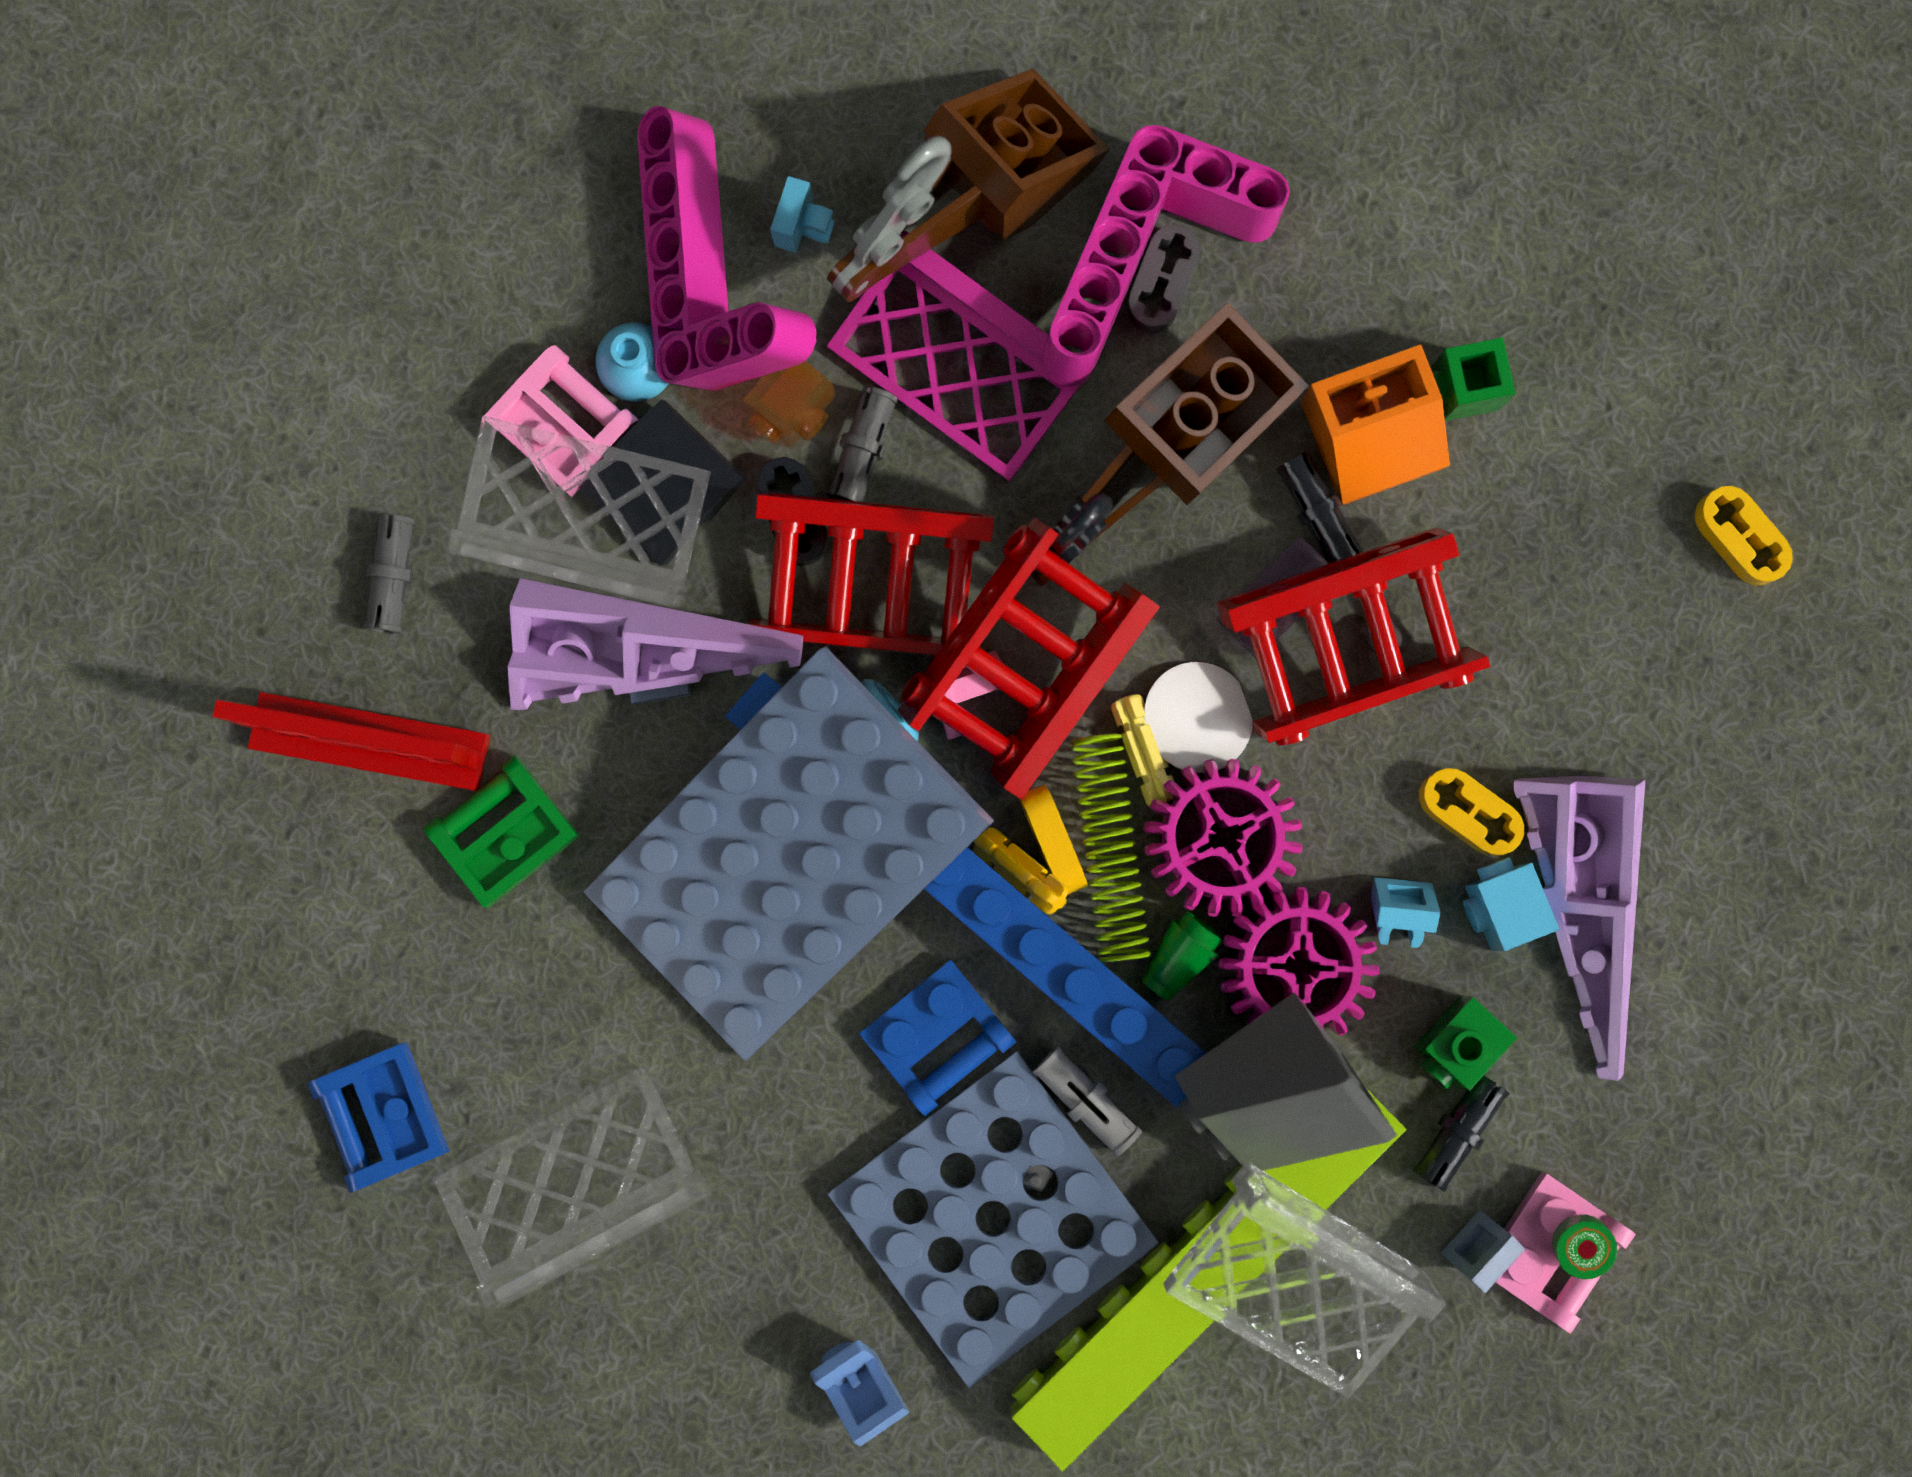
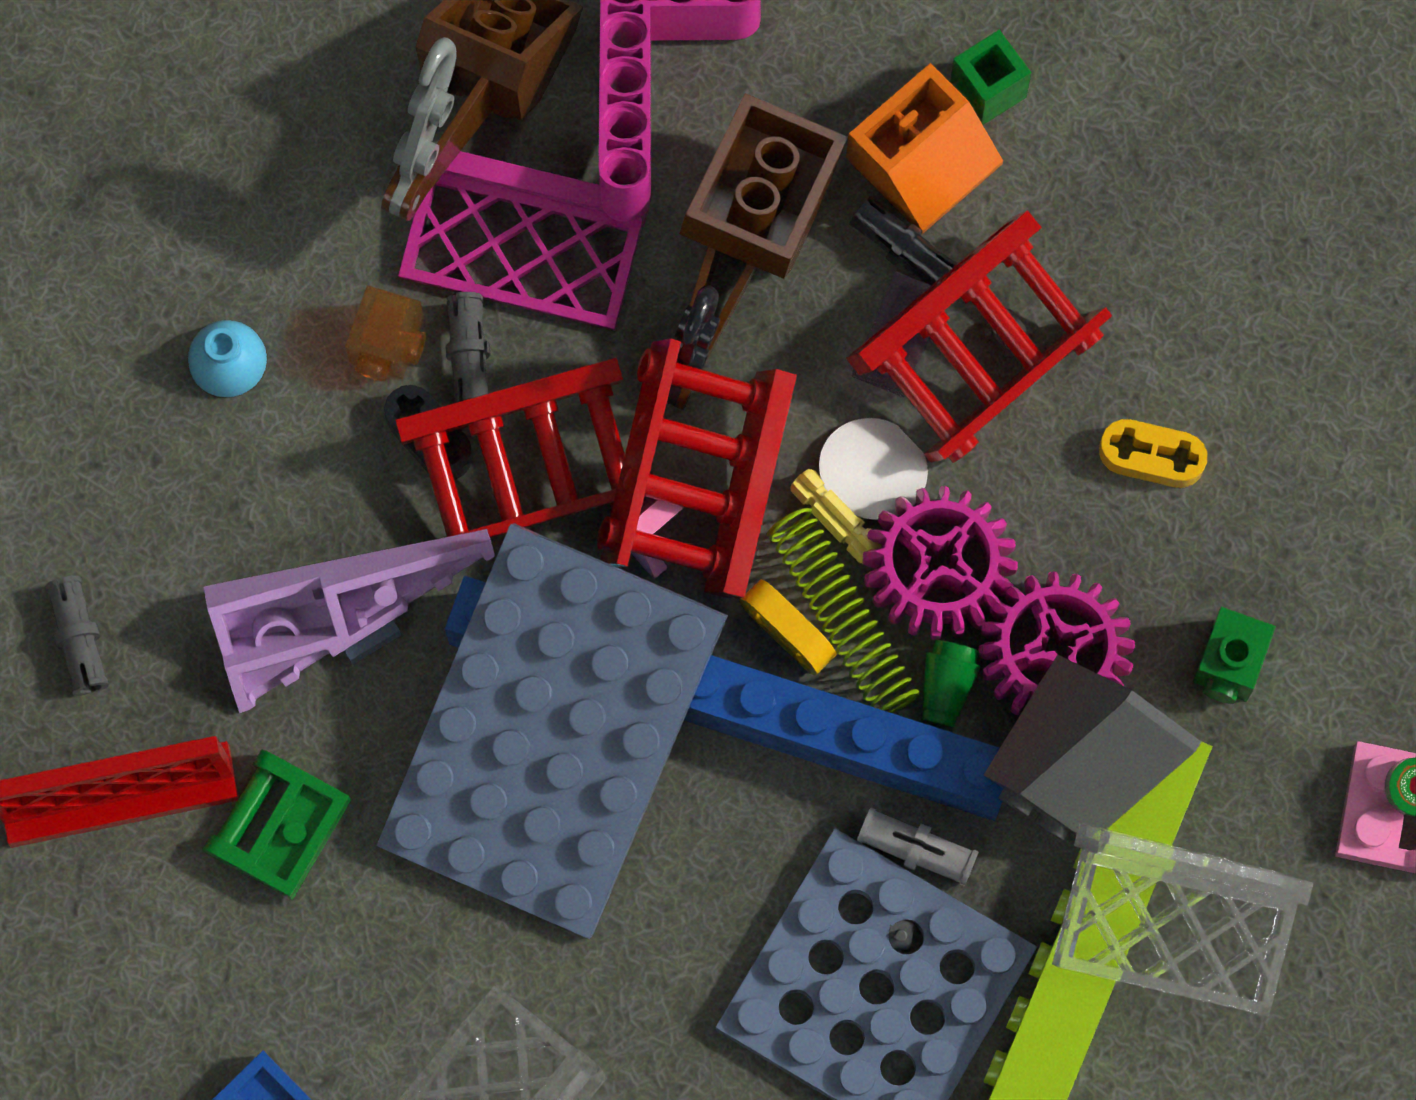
camera: 25 degrees left, 10 degrees down
(530, 407) = (175, 451): bright pink plate -> none
(567, 561) = (243, 555): clear fence -> none
(669, 437) = (297, 453): black slope -> none
(692, 330) = (272, 307): dark pink beam -> none
(799, 216) = (329, 171): medium azure tile -> none
(926, 1020) = (739, 838): blue plate -> none
(1021, 871) = (778, 661): yellow axle -> none
(1151, 274) = (666, 100): dark grey beam -> none
(1404, 907) = (1129, 556): medium azure tile -> none
(1460, 1133) = (1265, 737): black pin -> none
(1482, 1251) = (1329, 831): sand blue tile -> none
(1508, 905) = (1220, 518): medium azure brick -> none
(1589, 860) = (1277, 455): lavender wedge -> none
(1753, 526) = (1294, 109): yellow beam -> none

